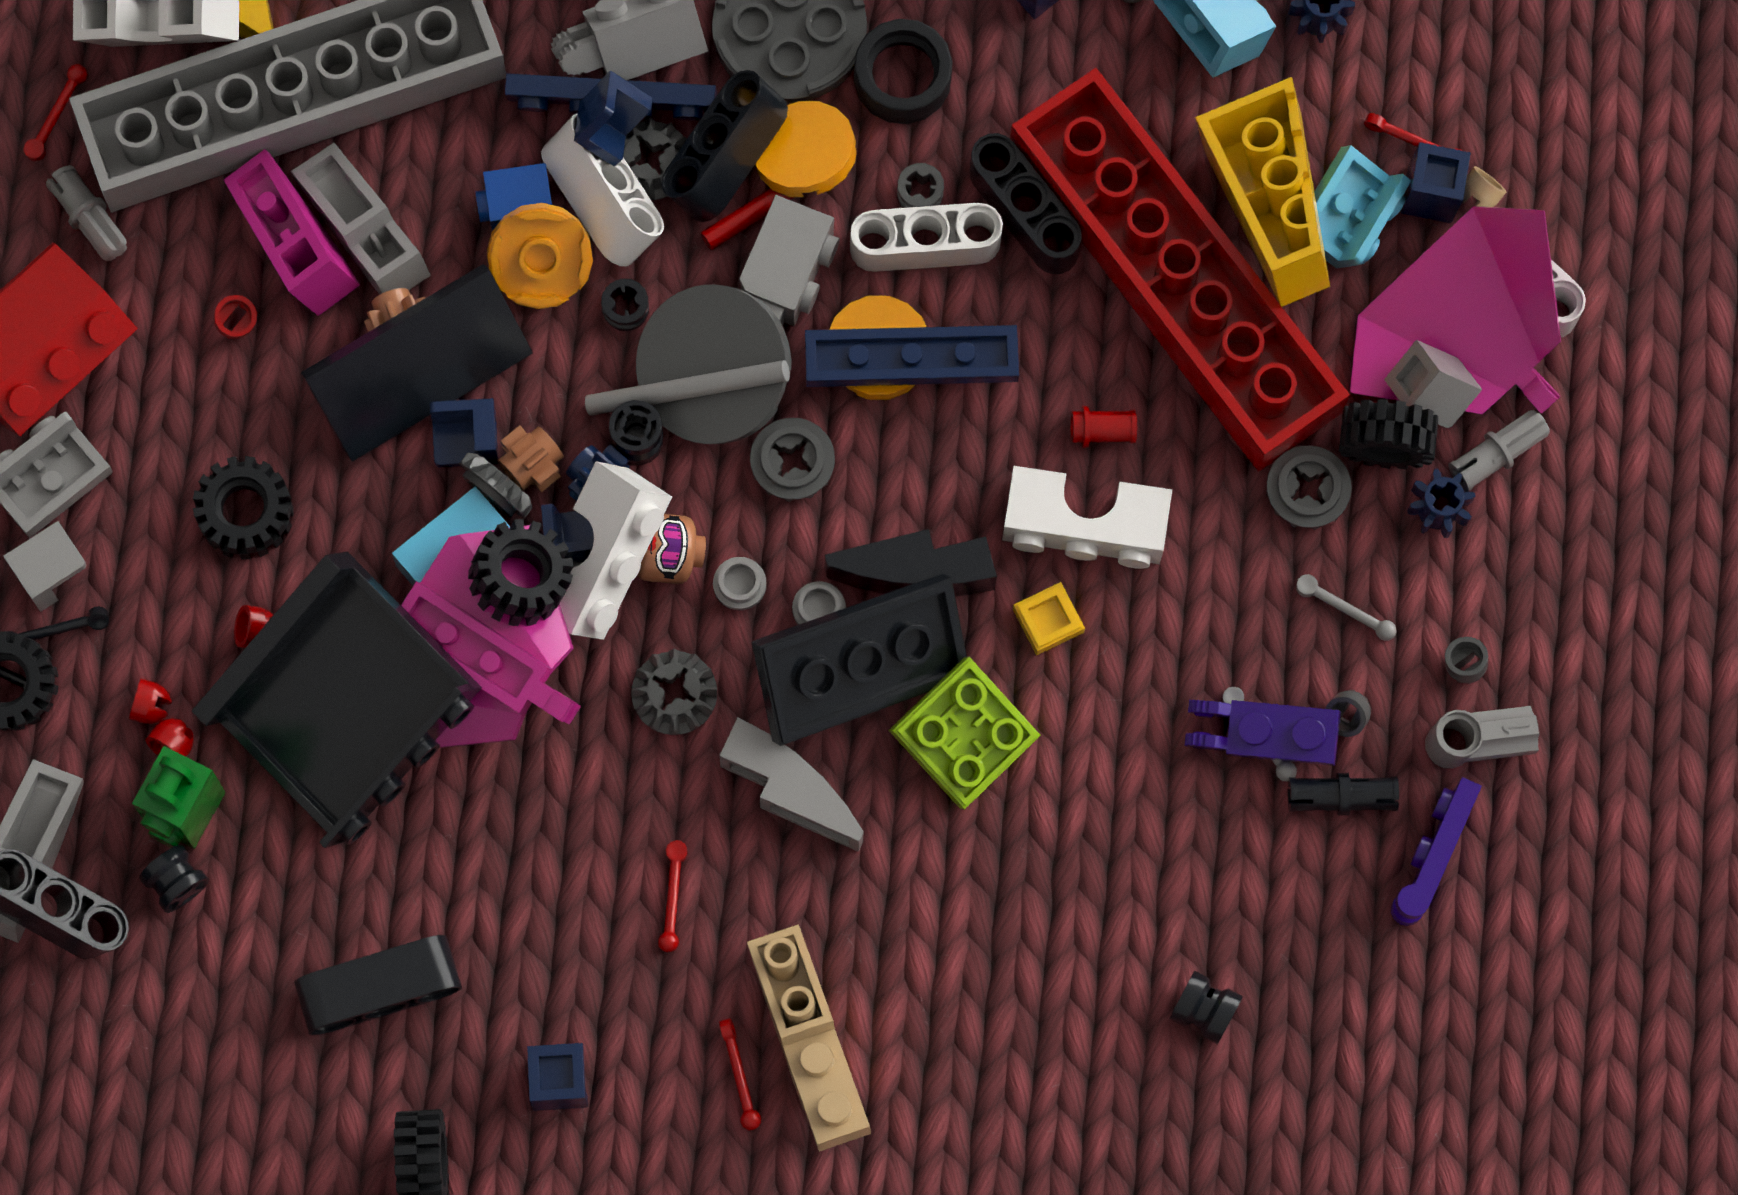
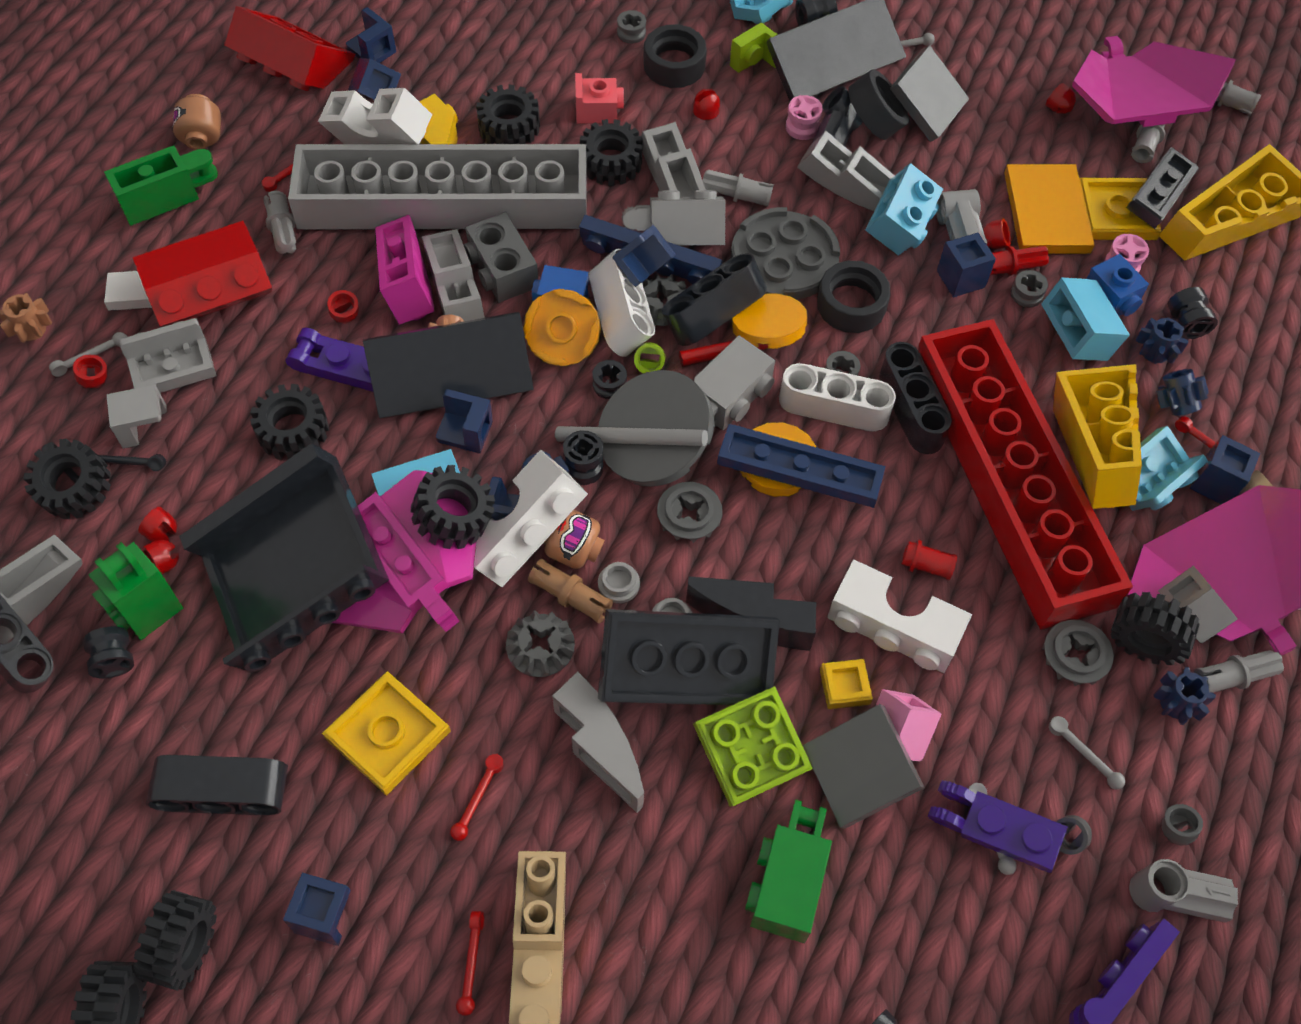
camera: 20 degrees right, 15 degrees down
(262, 397) = (336, 362): none -> dark purple plate
(422, 163) = (501, 256): none -> dark grey brick
(495, 486) = (466, 454): dark grey gear -> none
(530, 458) = (501, 450): nougat gear -> none
(538, 858) = (386, 732): none -> yellow tile
(667, 265) = (649, 365): none -> lime hinge
(685, 614) = (570, 590): none -> medium nougat pin
(1053, 864) = (792, 876): none -> green brick
(1096, 715) = (863, 766): none -> dark grey tile
(1127, 649) = (912, 719): none -> bright pink panel
(1343, 794) = (1052, 900): black pin -> none
(1362, 82) = (1182, 392): none -> dark blue gear

